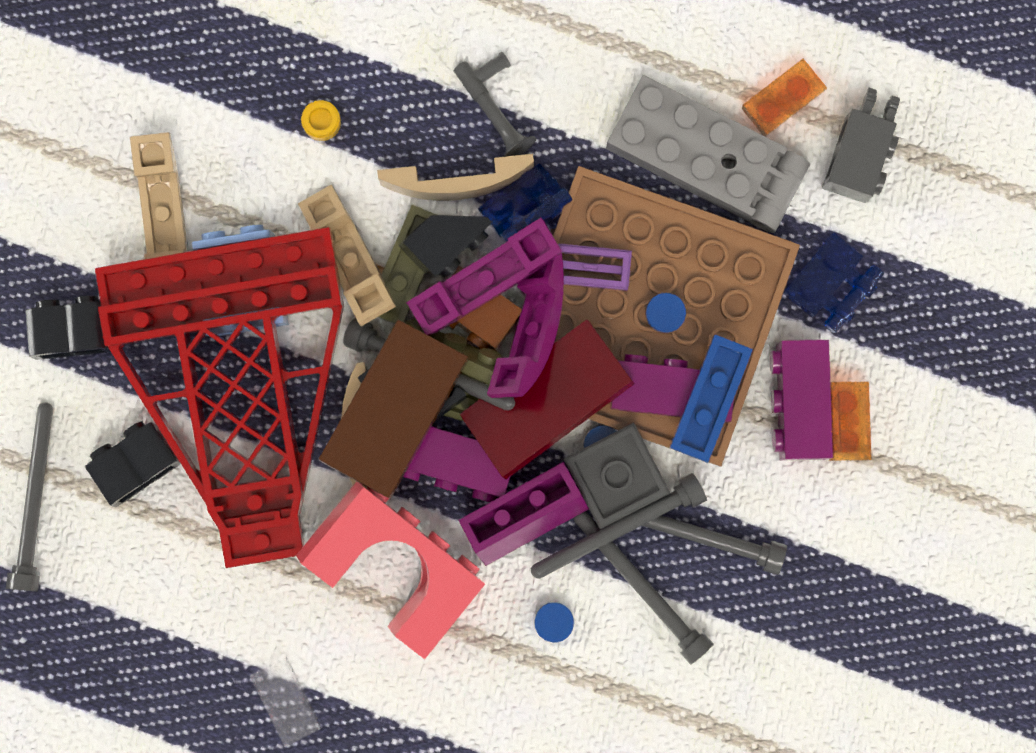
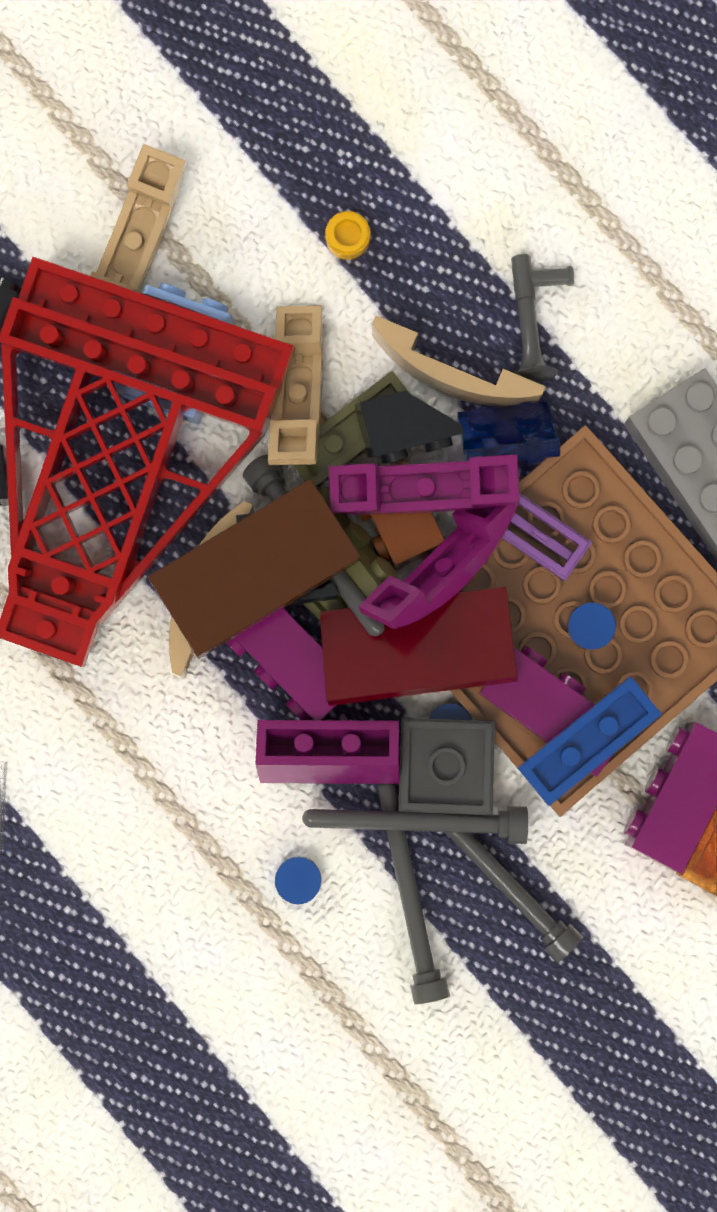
camera: 30 degrees right, 0 degrees up
(444, 584) = (164, 667): coral arch -> none

